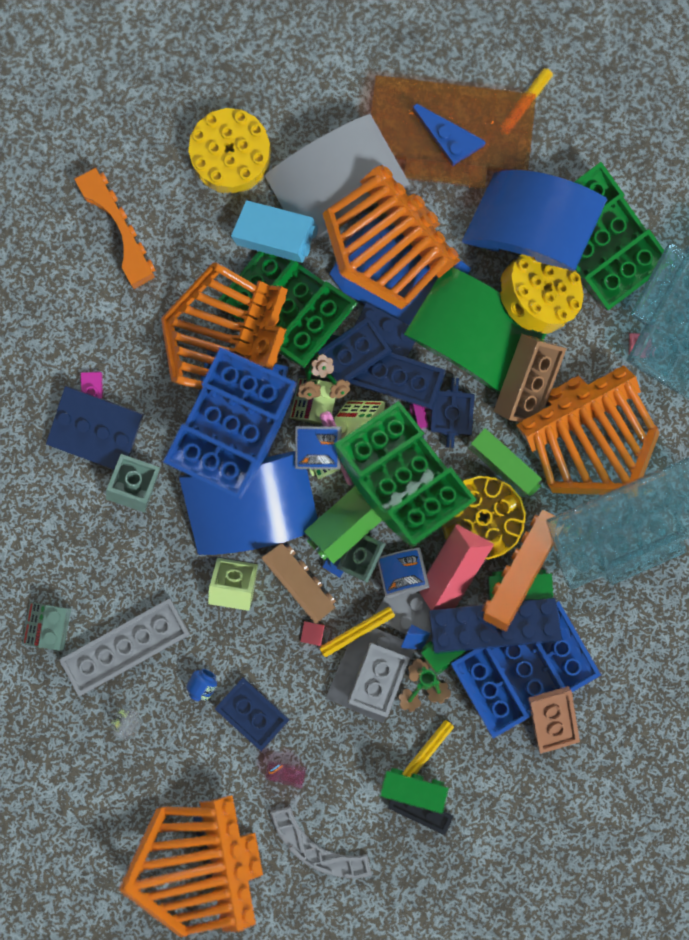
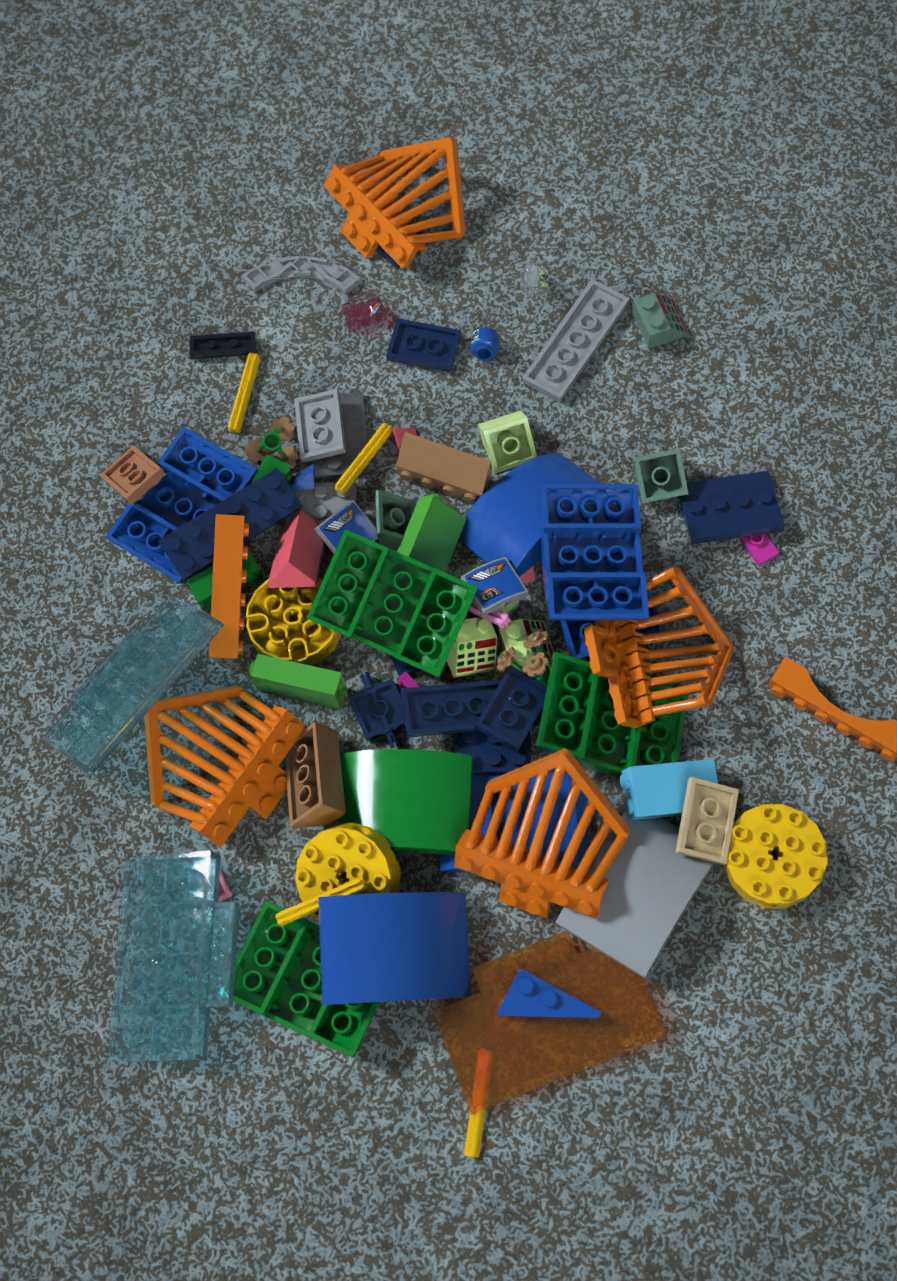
camera: 160 degrees right, 15 degrees down
(264, 192) = (707, 820): none -> tan plate
(414, 790) = (236, 351): green brick -> none
(571, 277) = (312, 905): none -> yellow axle

